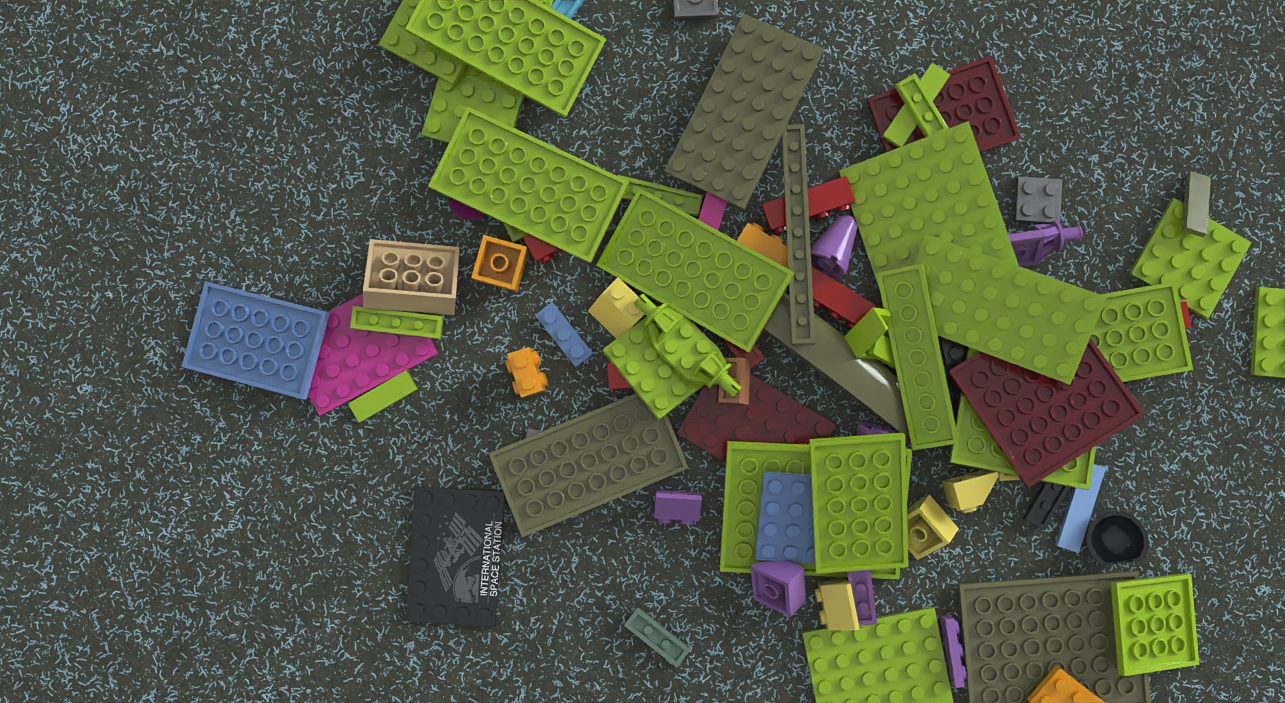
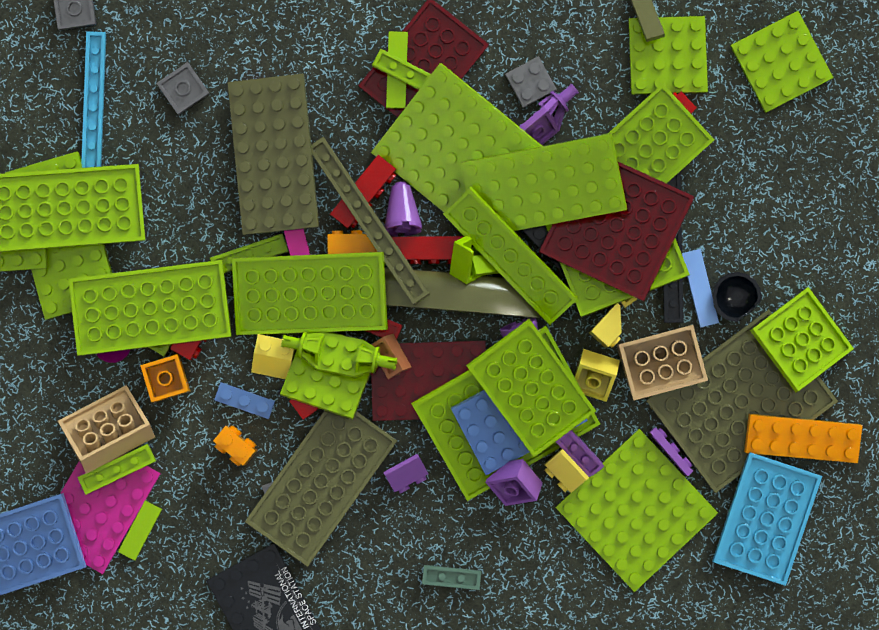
camera: 40 degrees left, 0 degrees up
(1001, 558) = (662, 362): none -> tan slope

